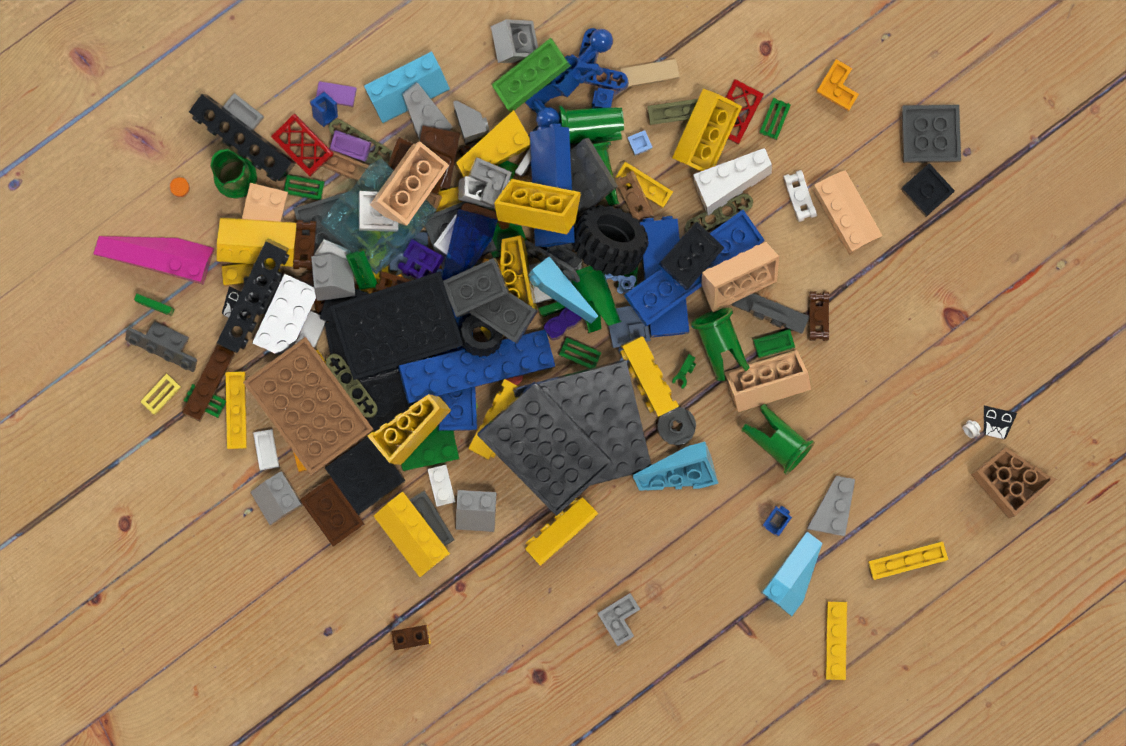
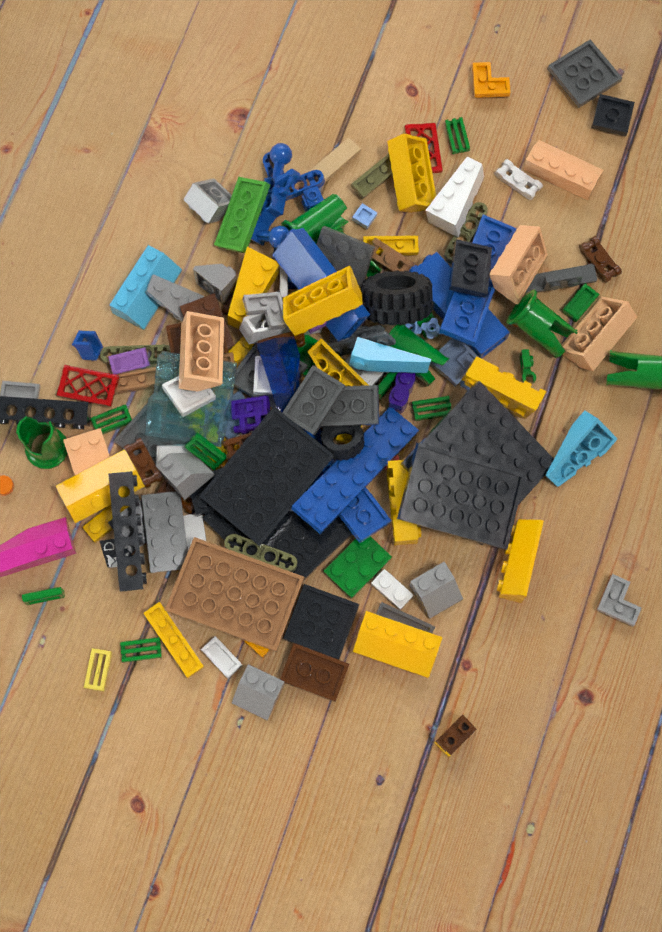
camera: 30 degrees left, 10 degrees down
(164, 343) = (72, 624): dark grey bracket -> none
(208, 383) = (134, 632): reddish brown plate -> none
(341, 94) = (95, 324): medium lavender tile -> none
(409, 429) = (335, 555): yellow wedge -> none
(686, 431) = (548, 425): dark grey plate -> none

